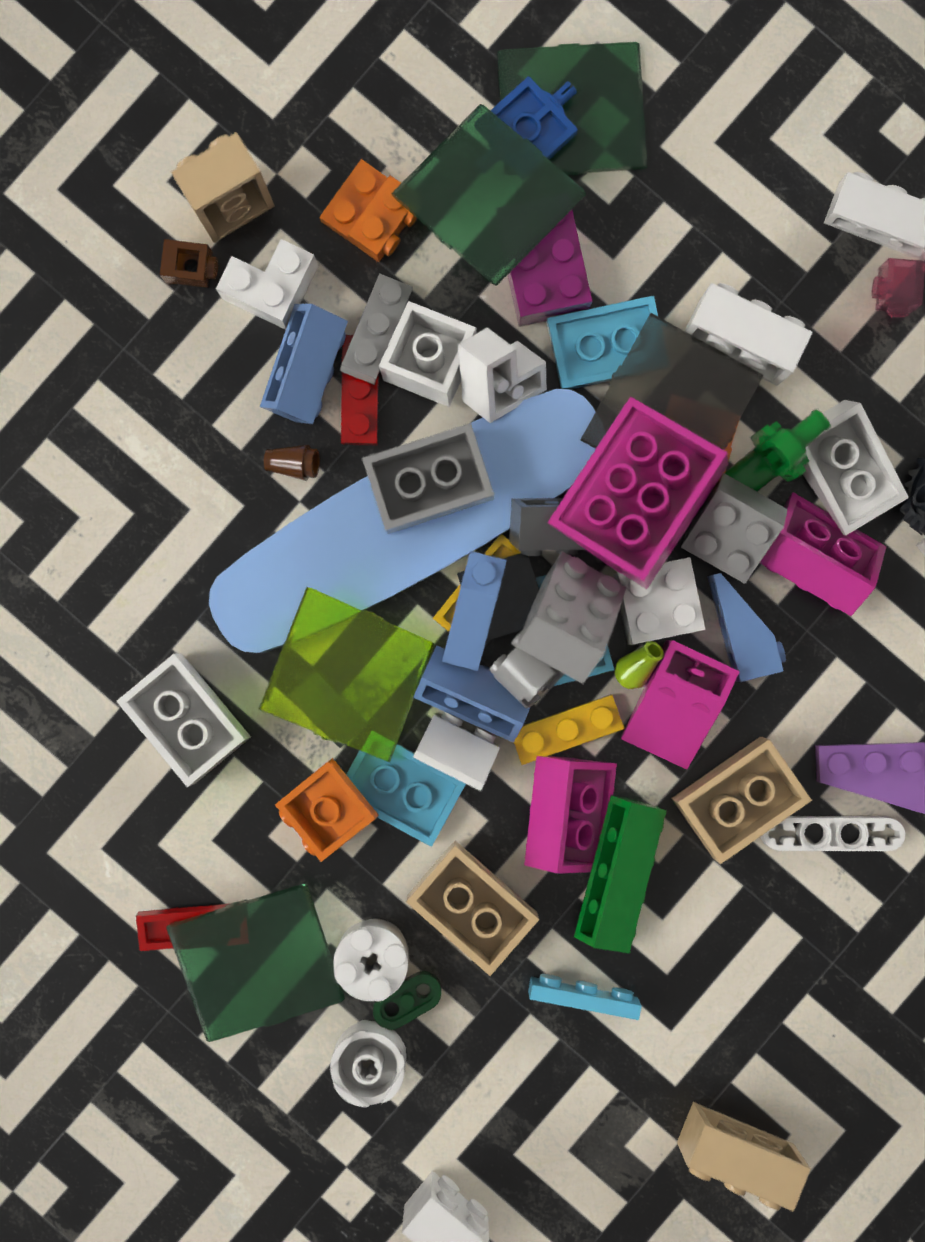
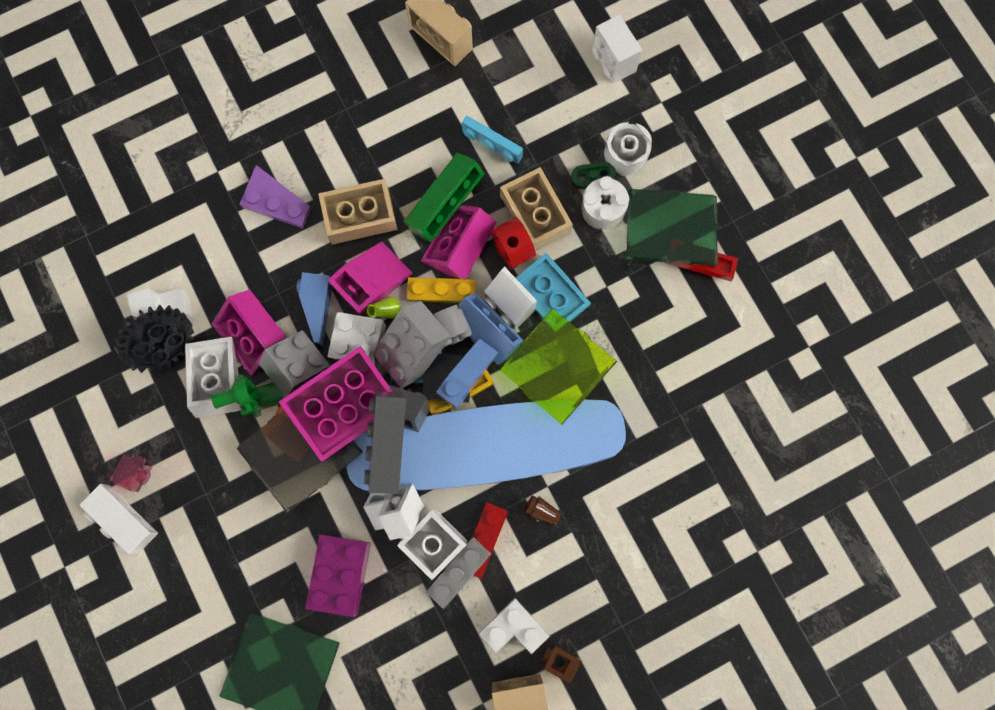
camera: 155 degrees left, 10 degrees down
(183, 719) = (664, 378): white brick -> none
(304, 363) = (512, 568): medium blue brick -> none
(326, 810) = (599, 294): orange plate -> none
(368, 212) = (432, 652): orange plate -> none
(428, 478) = (462, 460): light grey brick -> none
(468, 837) = (515, 233): none -> red piece
(488, 194) = (354, 628): clear green piece -> none
(538, 115) = (313, 665): blue plate -> none
(548, 459) = (386, 442): none -> dark grey brick
(596, 340) = (326, 511): medium azure plate -> none
(749, 332) = (234, 477): white brick -> none
(832, 834) = (315, 176): white beam -> none

